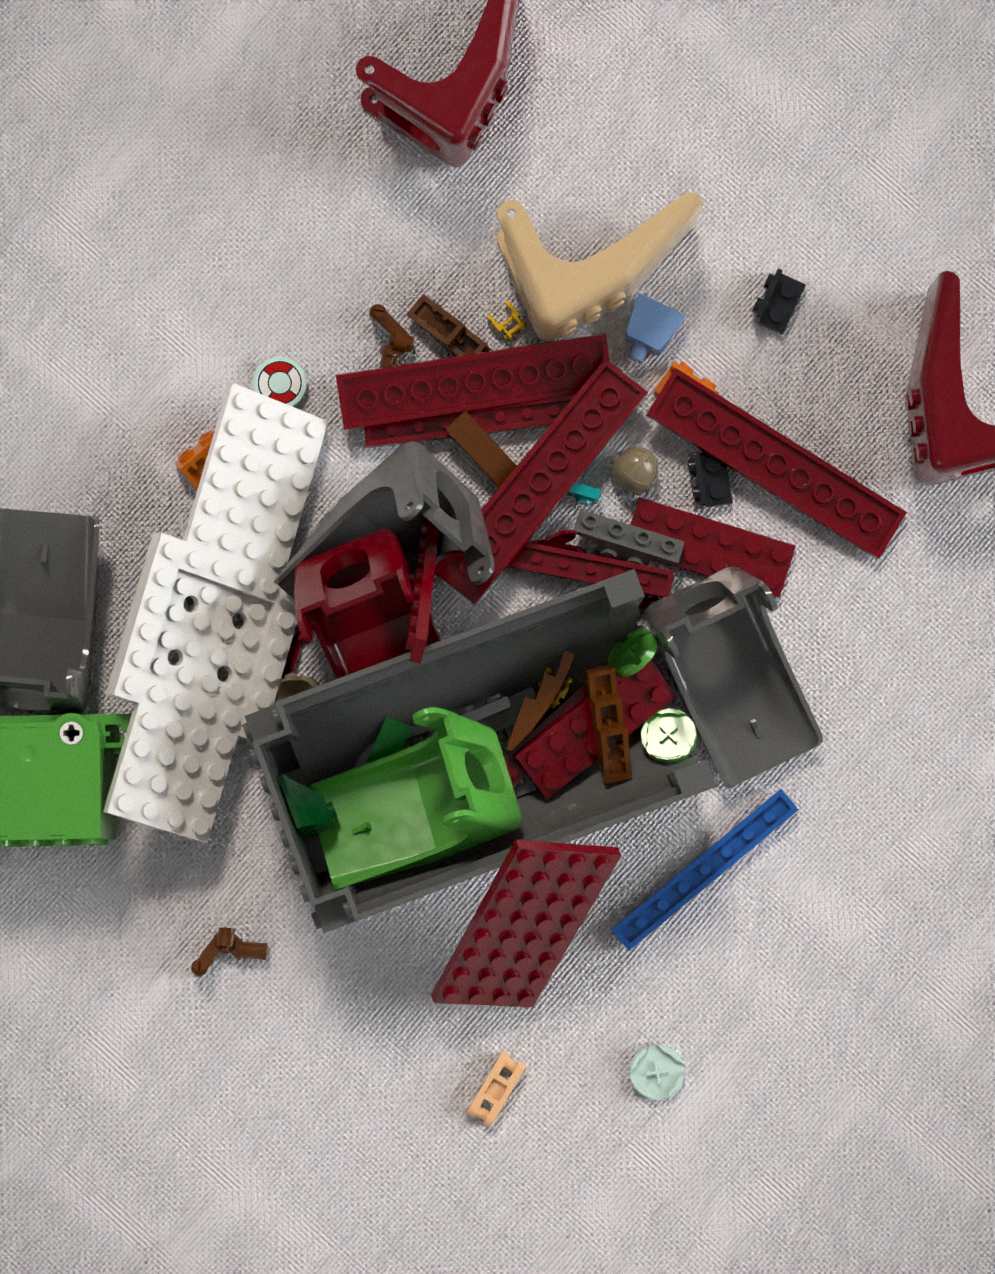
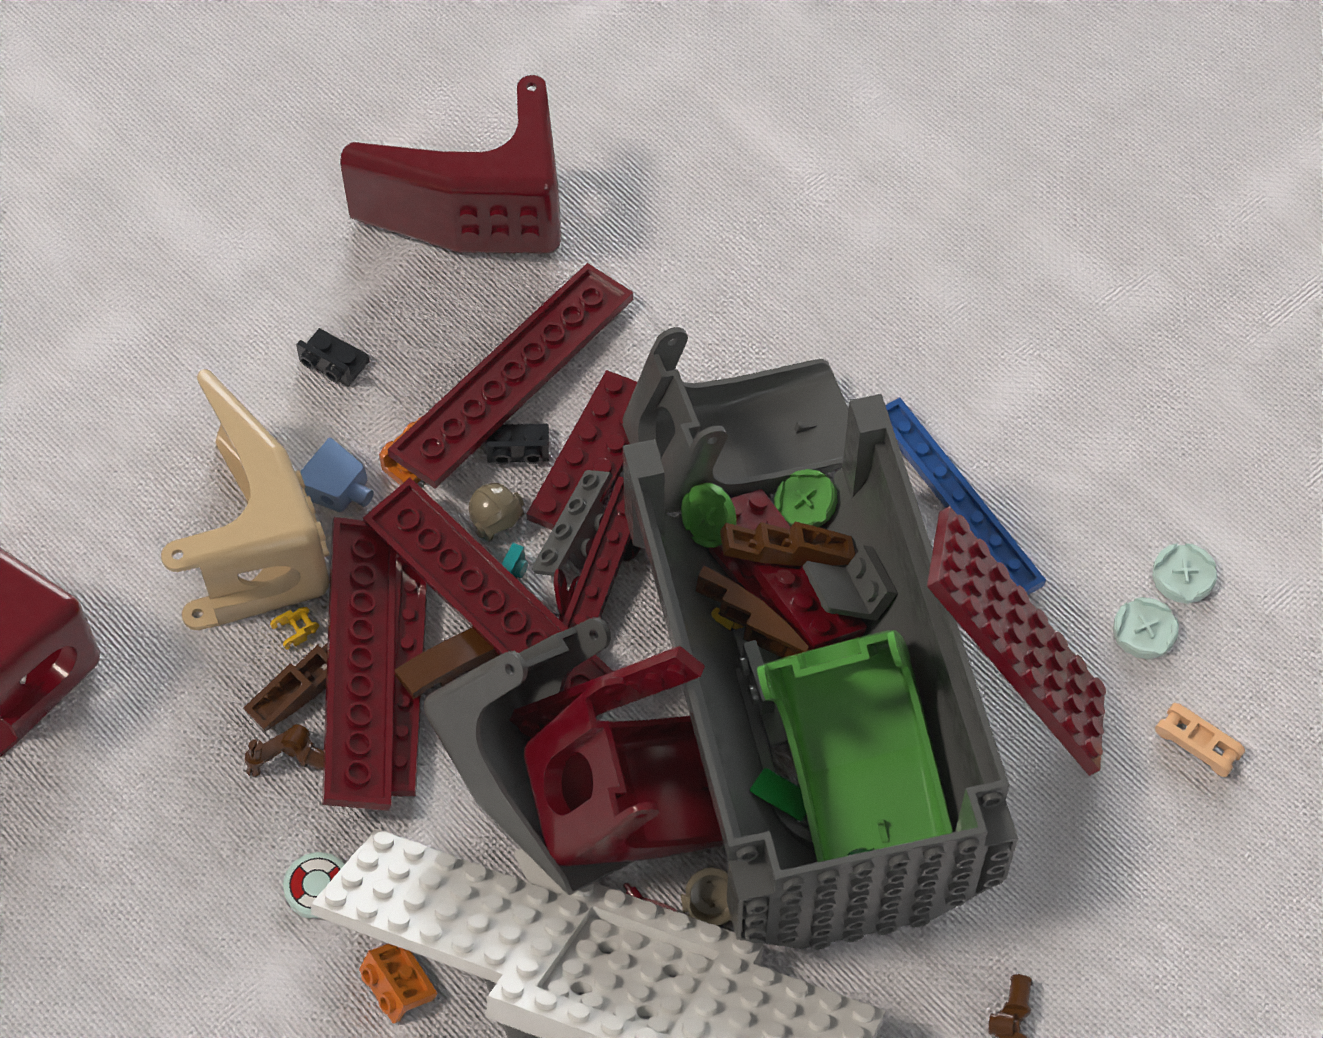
camera: 80 degrees left, 25 degrees down
(574, 780) = (854, 591): none -> dark grey bracket
(598, 1040) = (1145, 628): none -> light aqua tile

